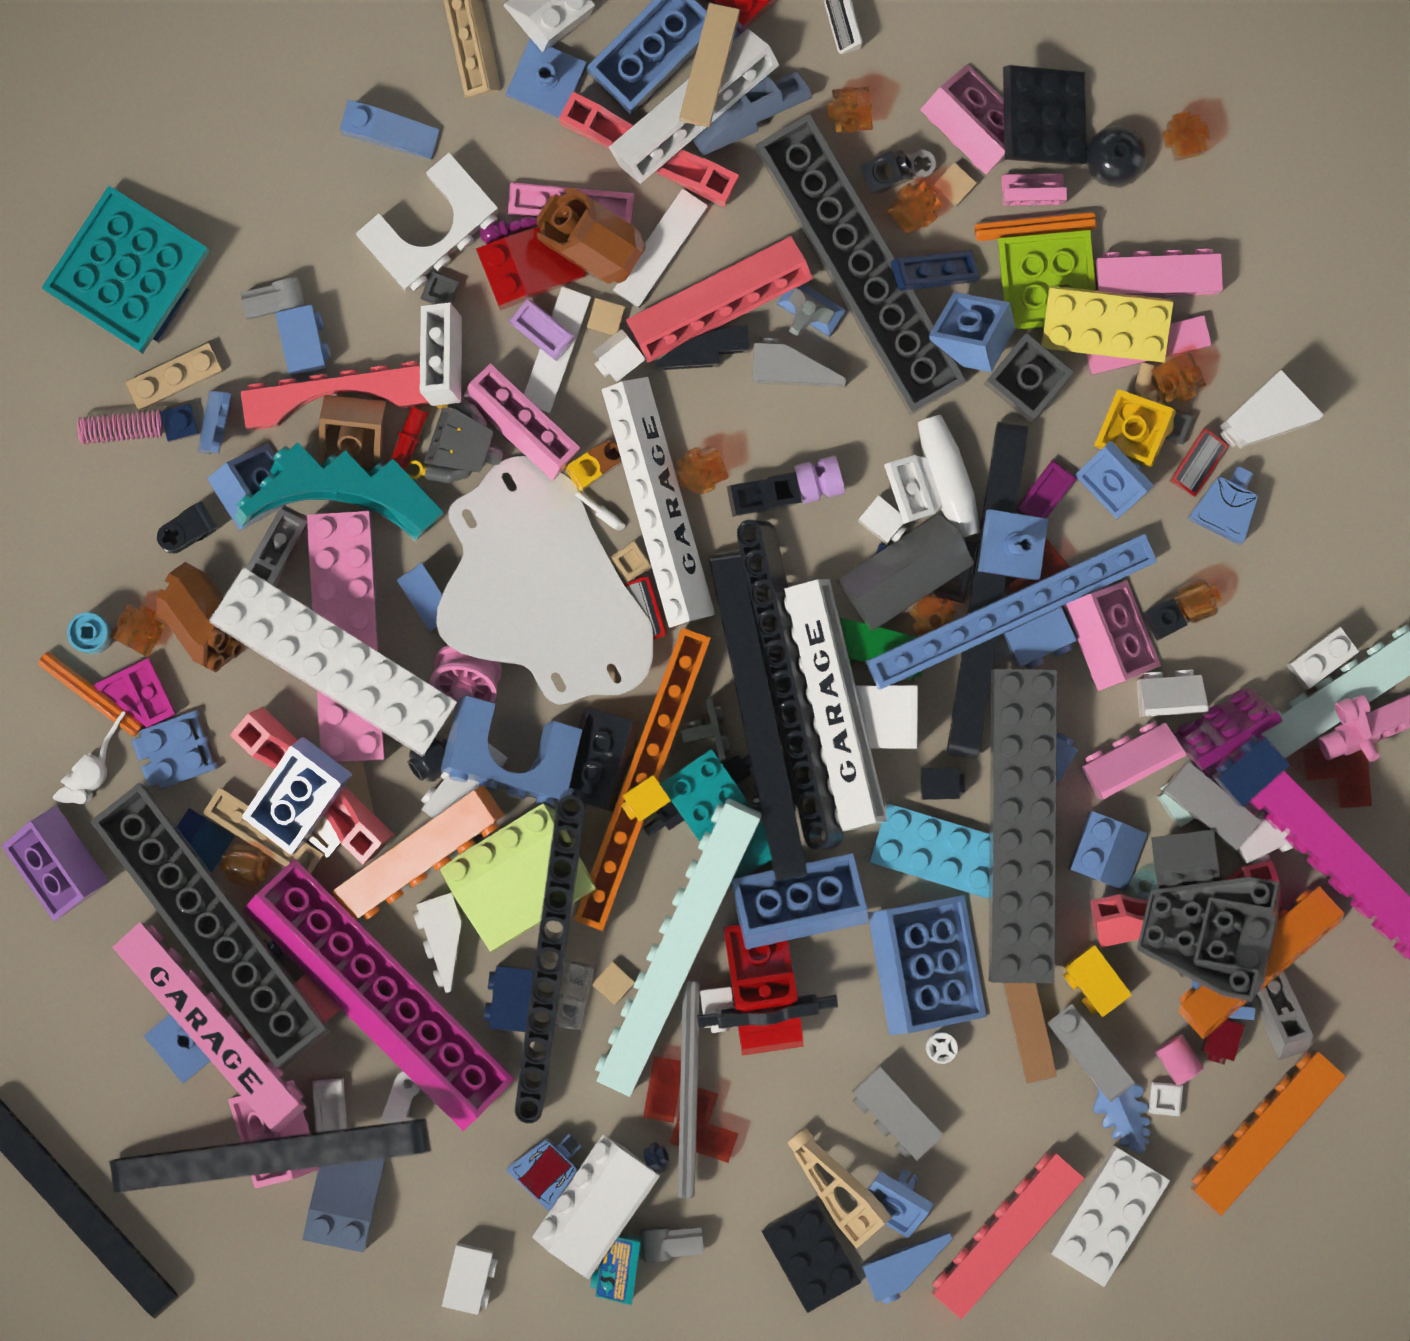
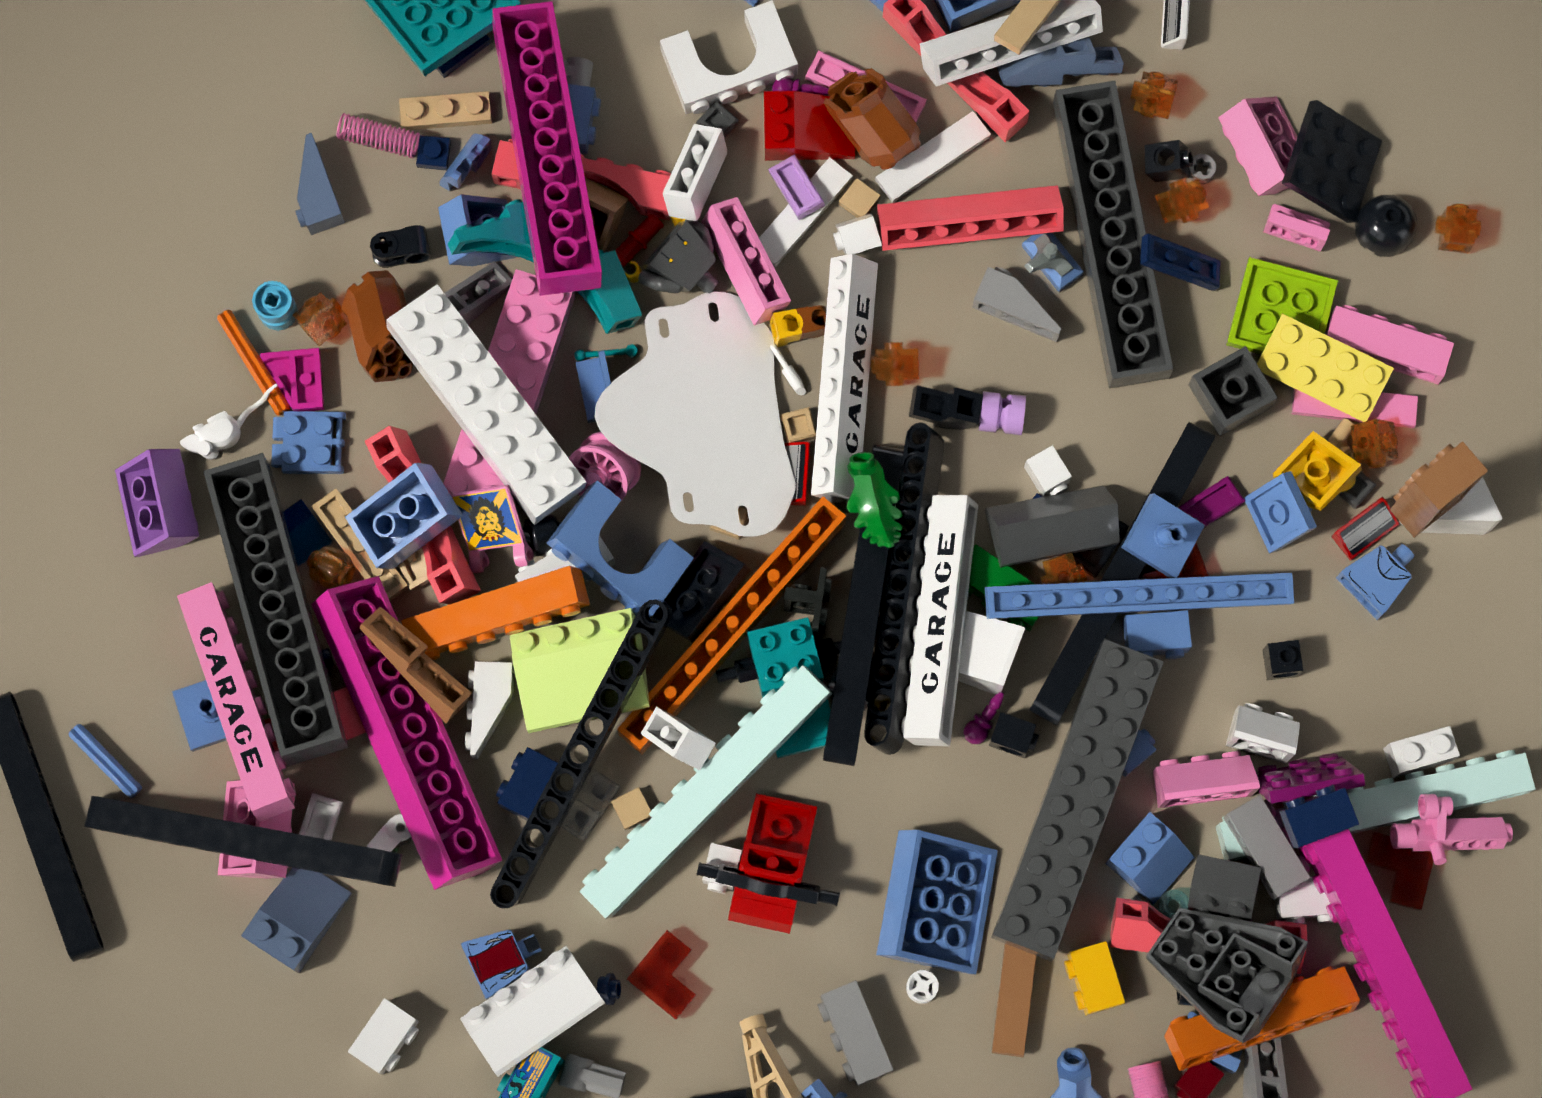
camera: 25 degrees right, 10 degrees down
(84, 509) = (315, 193): none -> sand blue slope
(107, 1123) = (105, 761): none -> medium blue axle
(291, 389) = (546, 149): none -> dark pink brick
(370, 934) = (408, 656): none -> medium nougat slope
(379, 769) = (491, 523): none -> flag
(444, 547) = (631, 351): none -> teal hinge
(634, 910) = (678, 738): none -> white brick
(645, 799) = (727, 638): yellow brick -> none
(663, 1089) = (640, 926): clear red plate -> none
(688, 1090) = (663, 934): light grey axle -> none
(704, 349) = (940, 258): black slope -> none
(730, 614) = (873, 501): none -> green plant
(800, 906) = (836, 795): medium blue brick -> none
(905, 790) = (977, 730): none -> magenta bar
(933, 850) = (983, 797): medium azure plate -> none
(935, 480) = (1110, 452): white plate -> none
(955, 184) = (1226, 197): tan tile -> none
(974, 330) = (1198, 327): medium blue slope -> none
(1035, 226) = (1246, 249): orange axle -> none
(1090, 1053) = (1064, 1043): light grey slope -> none
(1112, 635) = (1226, 656): bright pink slope -> none
(1198, 600) = (1321, 654): clear orange head -> none
(1256, 421) = (1437, 487): none -> medium nougat brick

